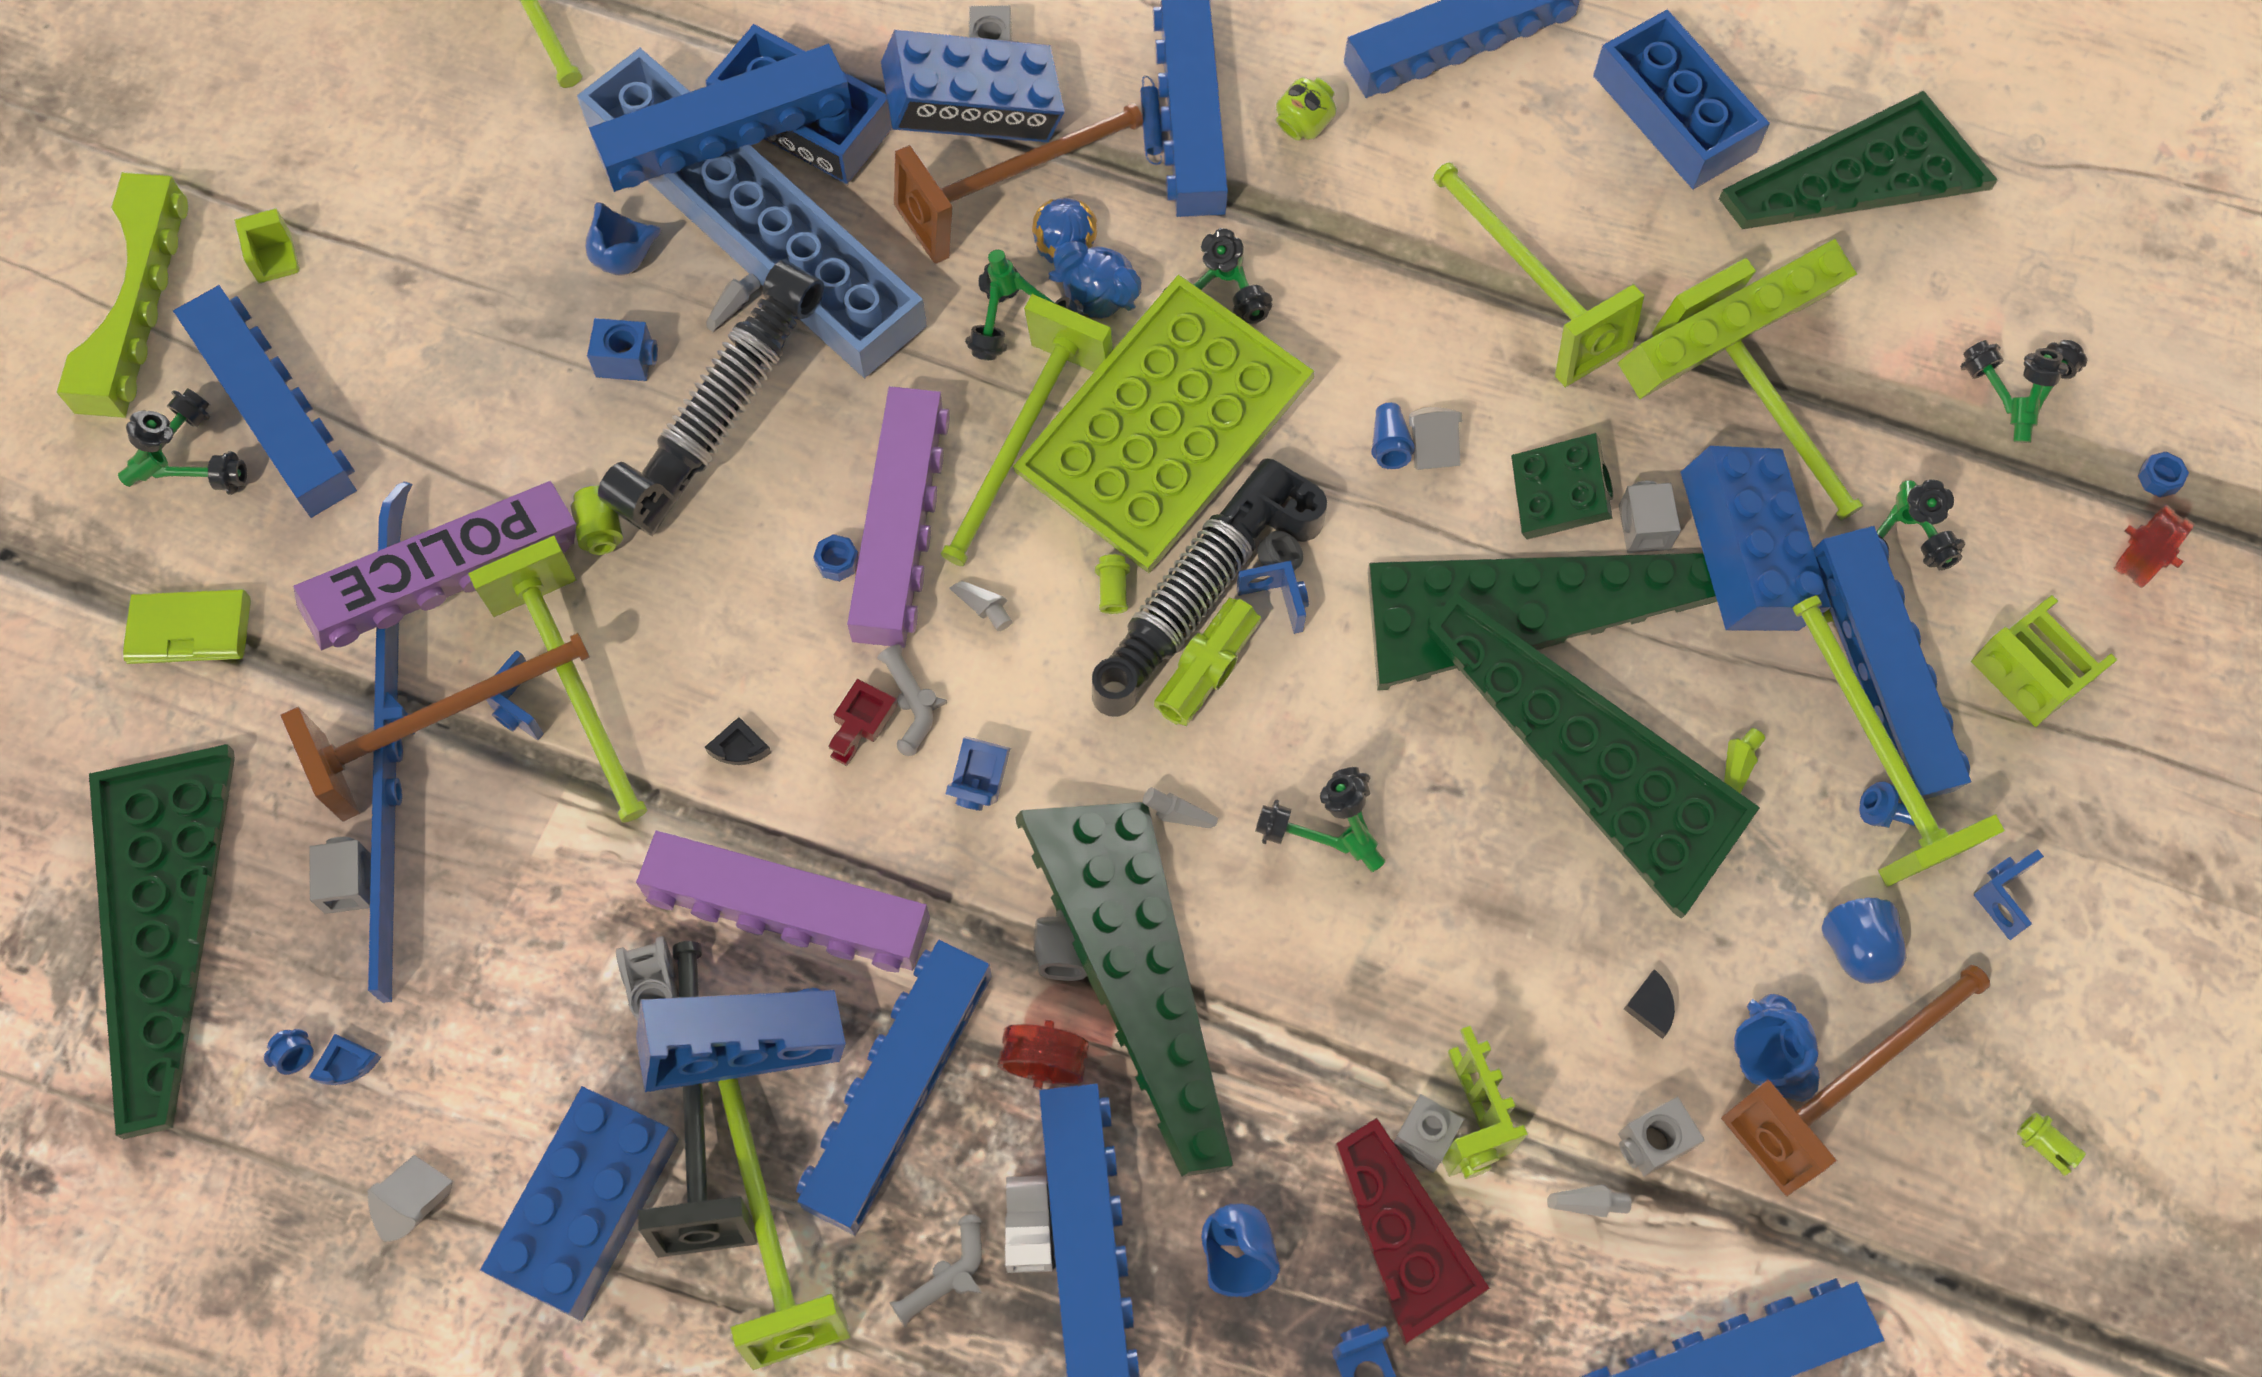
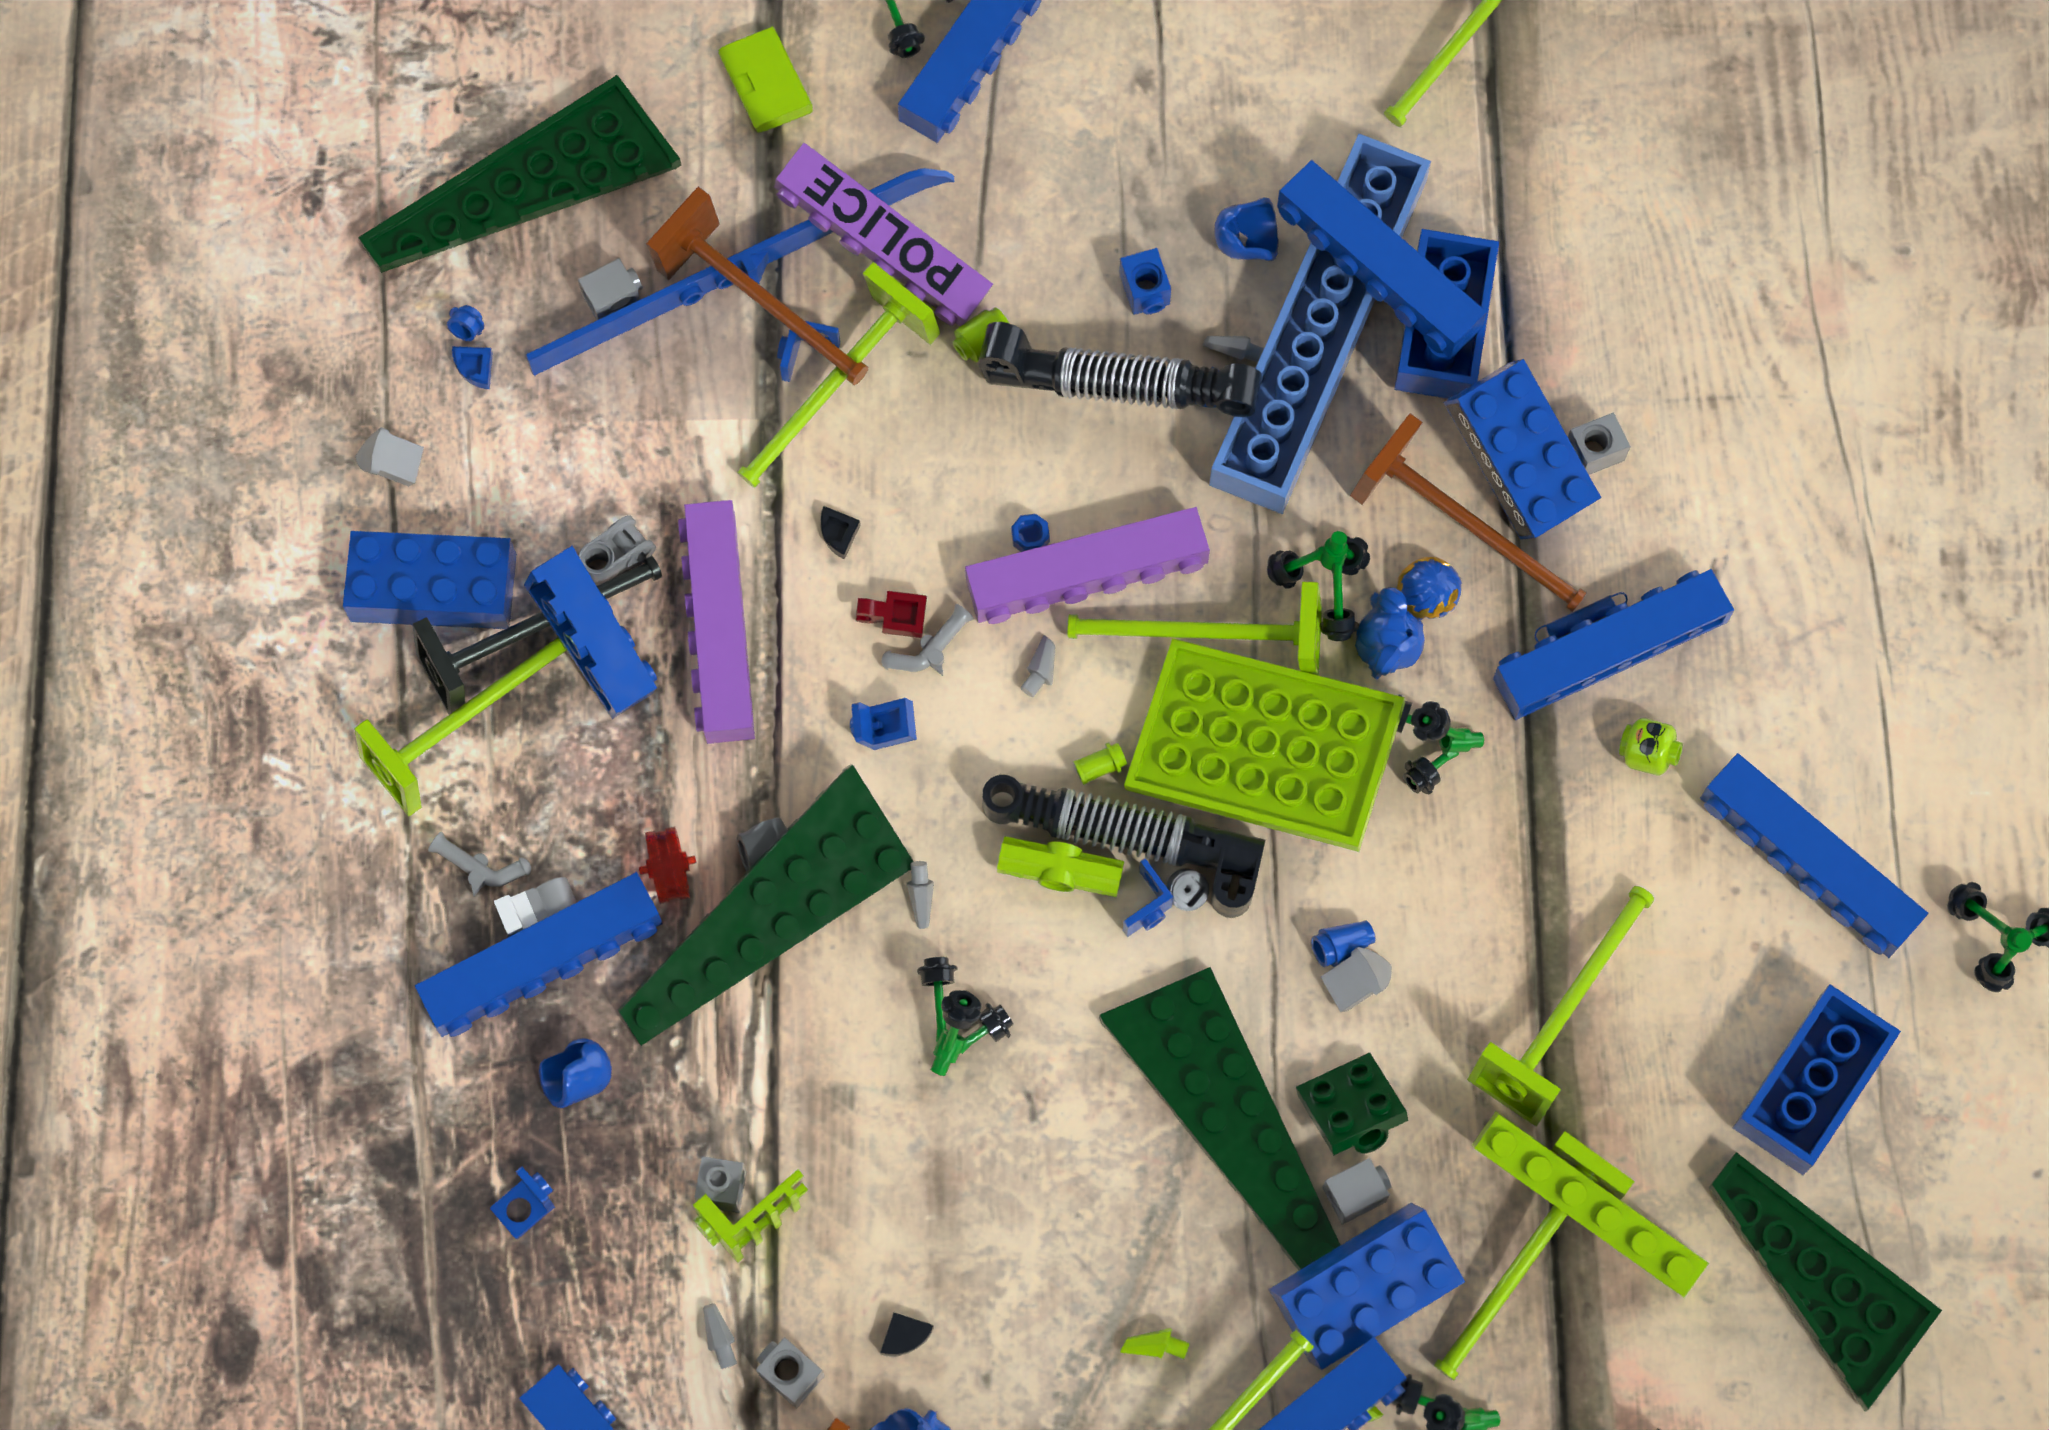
camera: 70 degrees right, 5 degrees up
(894, 1087) = (605, 766): blue brick -> none
(1411, 1243) = (630, 1206): dark red wing -> none
(1636, 787) = (1089, 1260): dark green wing -> none

